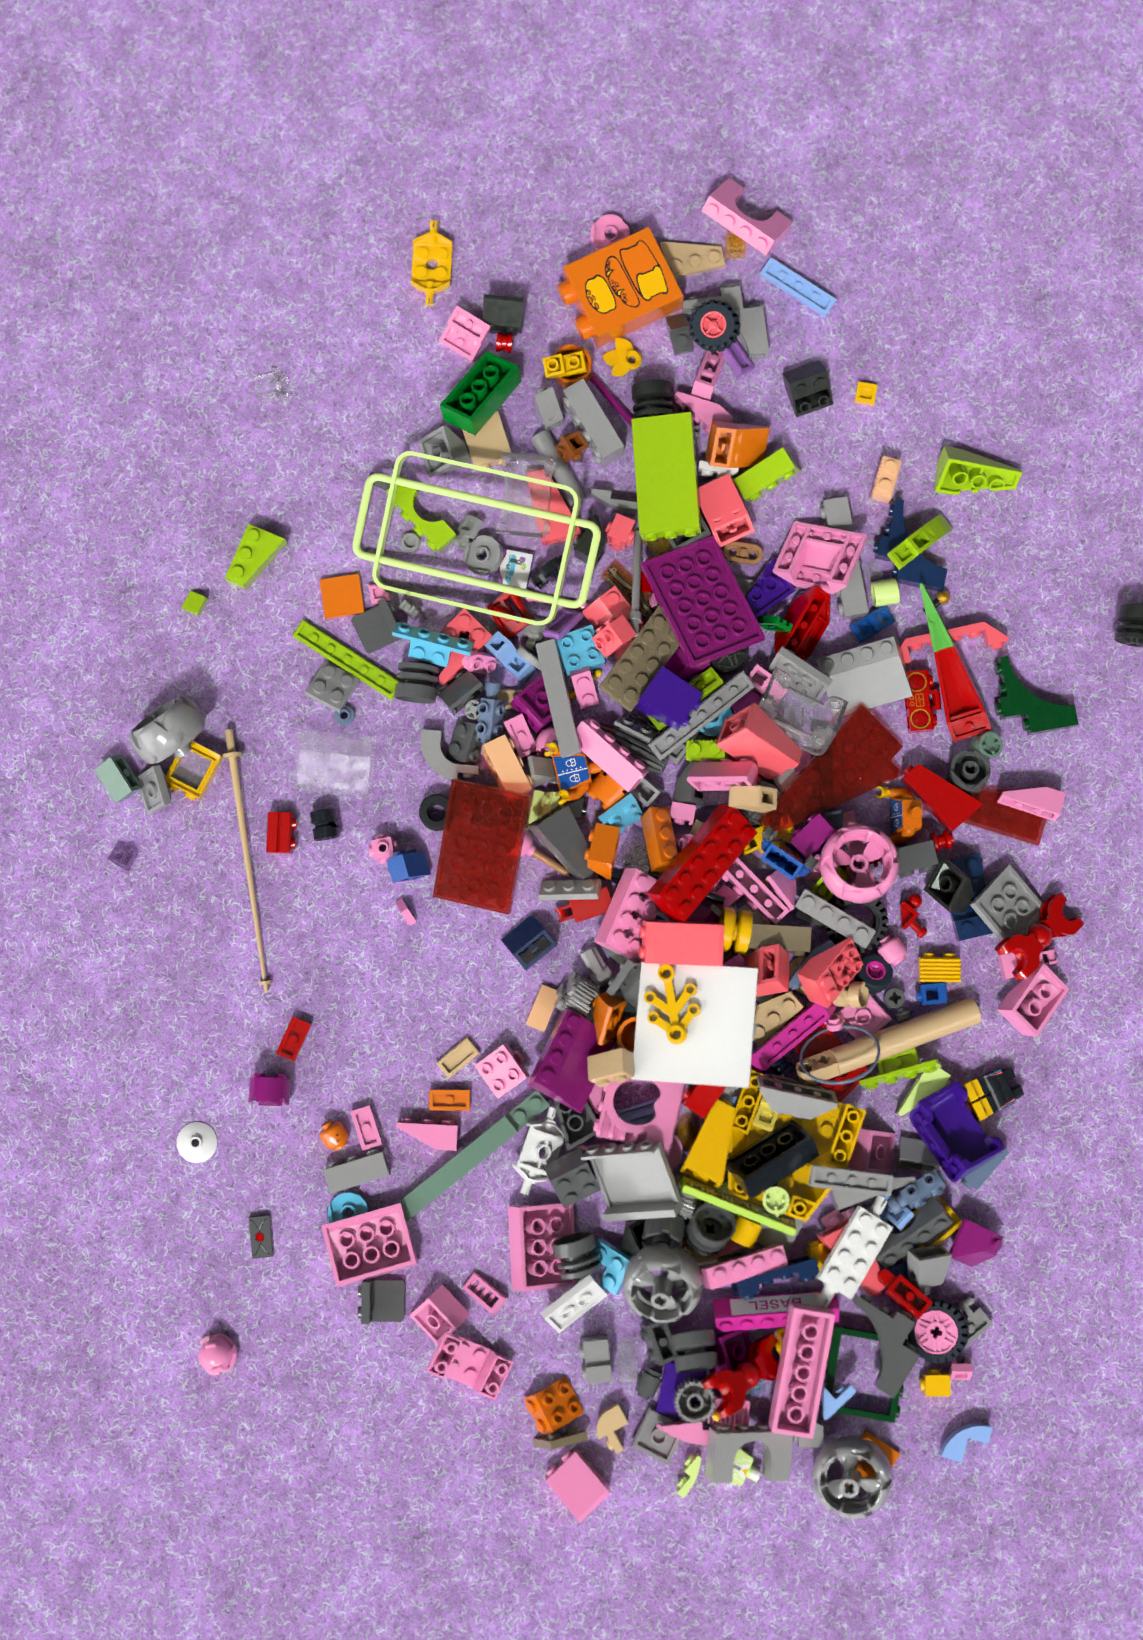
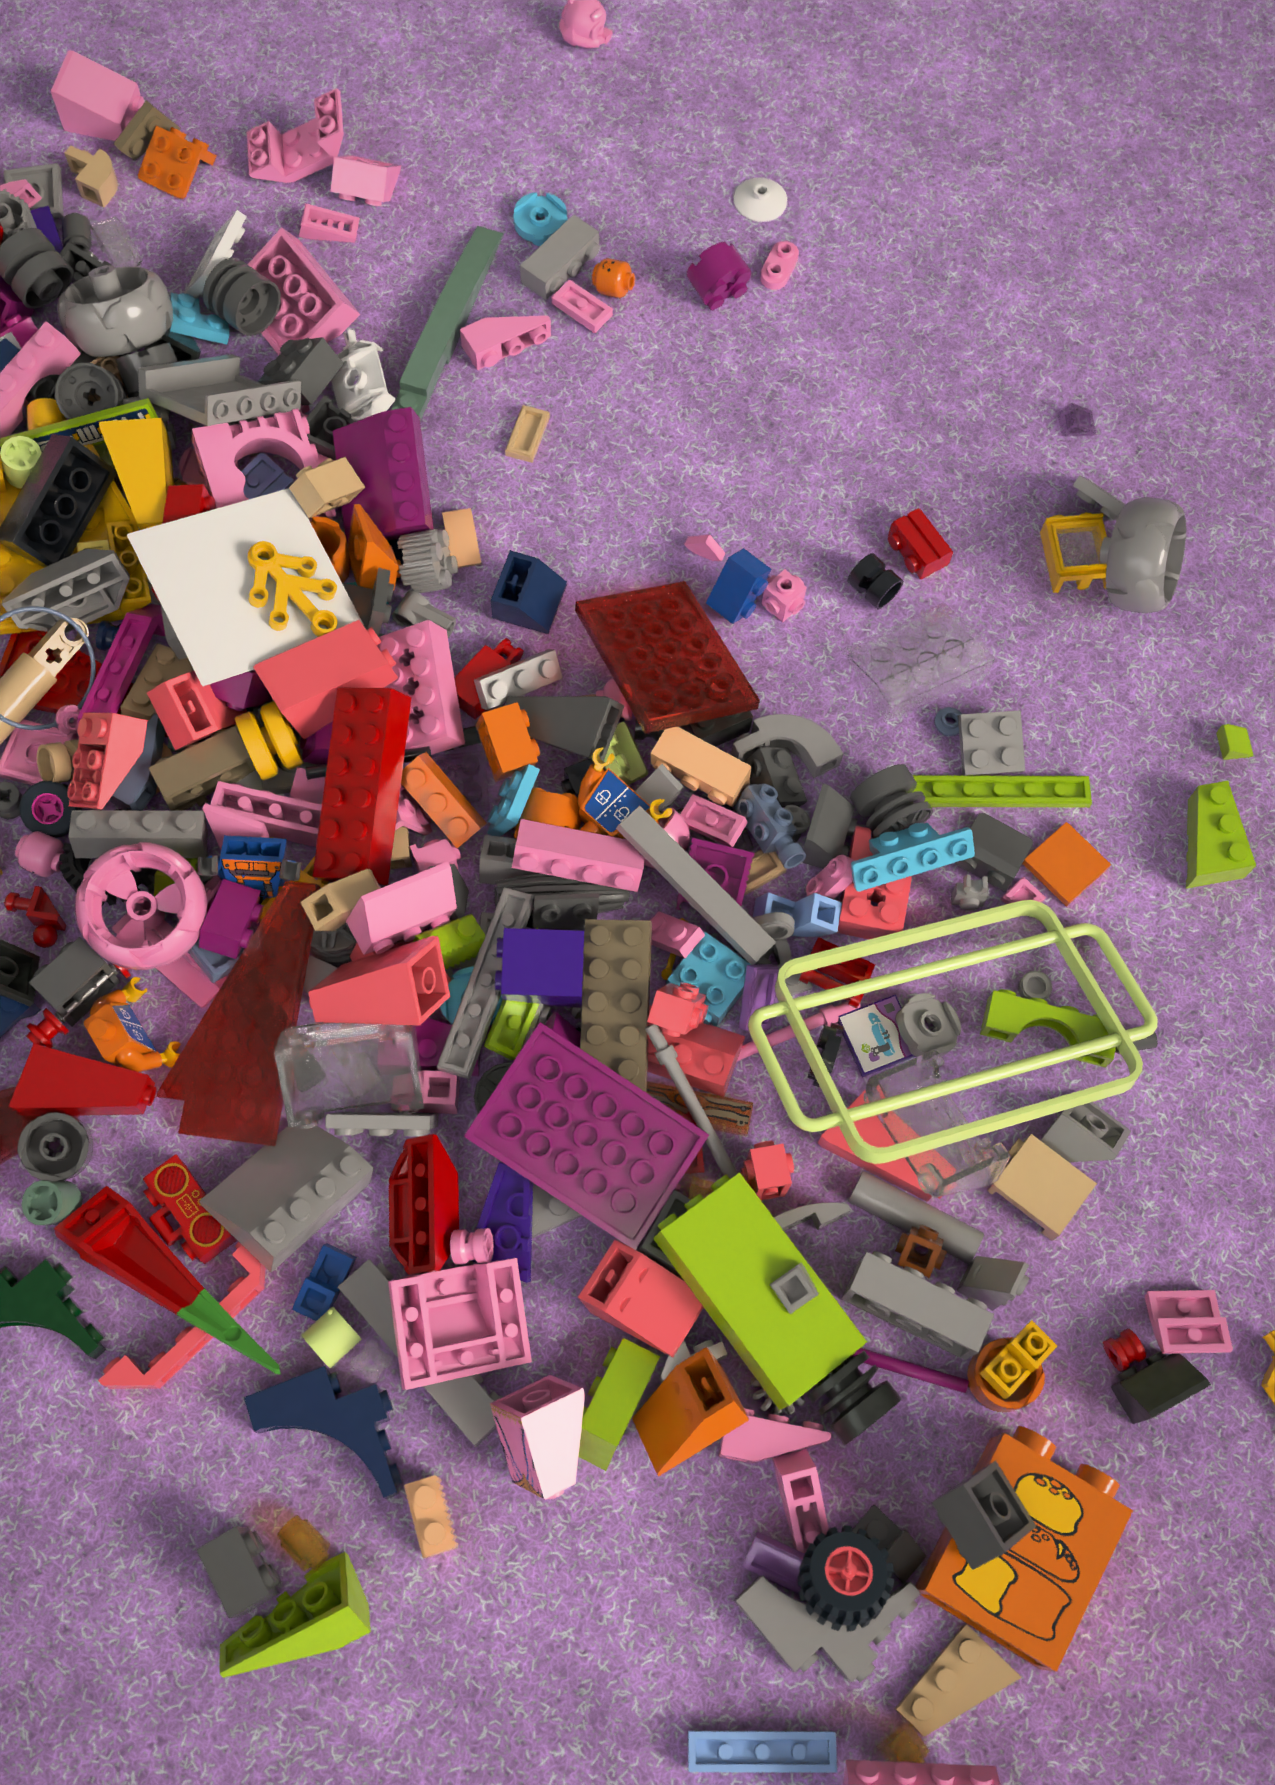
camera: 140 degrees right, 15 degrees down
(118, 778) = (1152, 482): brick -> none
(221, 1083) = (781, 263): none -> bright pink plate
(232, 755) = (1045, 594): tan piece -> none
(261, 1236) = (620, 150): dark grey tile -> none
(293, 1038) = (733, 346): red plate -> none
(369, 1245) = (489, 190): bright pink slope -> none
(381, 1301) = (444, 156): dark grey bracket -> none
(426, 805) = (762, 662): black tyre -> none
(449, 1100) = (505, 383): orange plate -> none
(467, 529) = (973, 1049): light grey plate -> none
(480, 393) = (1102, 1241): green brick -> none
(502, 1069) = (463, 444): bright pink plate -> none
(583, 543) = (803, 1145): pearl dark grey slope -> none
(597, 1359) = (151, 217): light grey brick -> none
(605, 224) = (1121, 1639): bright pink plate -> none
(619, 358) = (949, 1445): yellow plate -> none
(635, 306) = (984, 1515): none -> dark grey slope
(650, 461) = (795, 1288): none -> light grey slope
(743, 551) = (575, 1261): medium nougat plate -> none
(774, 623) = (464, 1179): green tile -> none
(791, 589) = (471, 1246): none -> bright pink wheel
(808, 388) = (640, 1586): pearl dark grey slope -> none
(812, 478) = (541, 1434): none -> slope
(865, 393) = (546, 1643): yellow tile -> none
(919, 541) = (318, 1446): lime slope -> none
(942, 598) = (242, 1385): pearl gold piece -> none
(952, 506) = (303, 1543): none -> clear yellow brick
(989, 509) = (239, 1571): none -> dark grey brick

